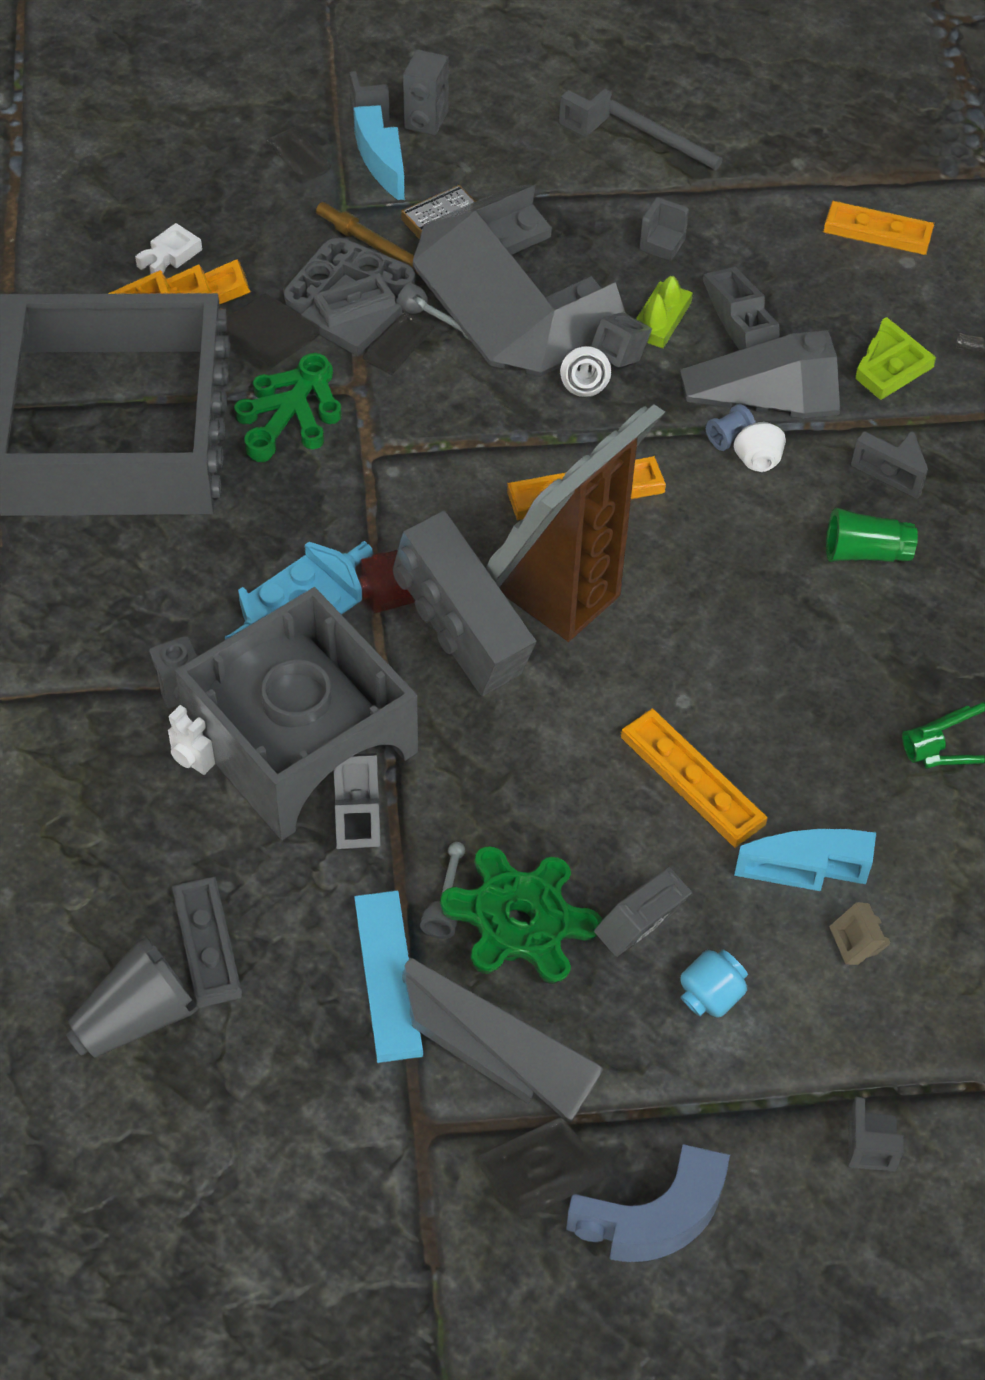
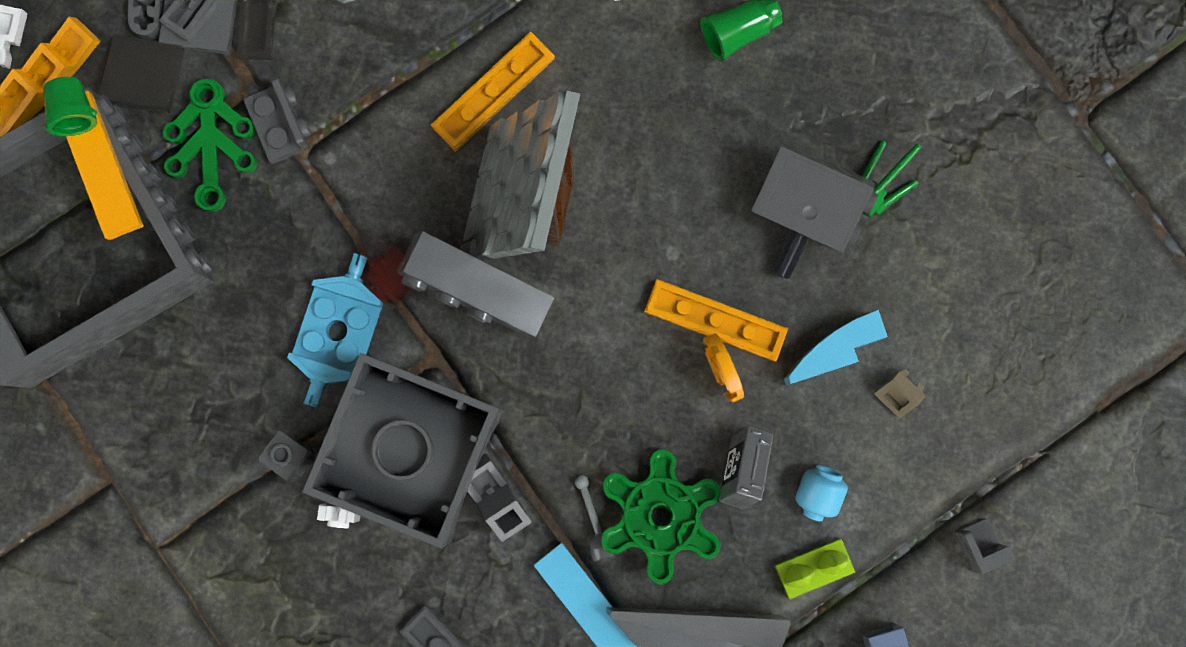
camera: 30 degrees left, 30 degrees up
(183, 347) = (104, 179): none -> light orange tile
(191, 284) = (67, 108): none -> green piece
(365, 419) = (277, 122): none -> dark grey bracket
(662, 1062) = (814, 568): none -> lime tile
(673, 804) = (723, 367): none -> light orange tile
(858, 701) = (813, 202): none -> dark grey piece

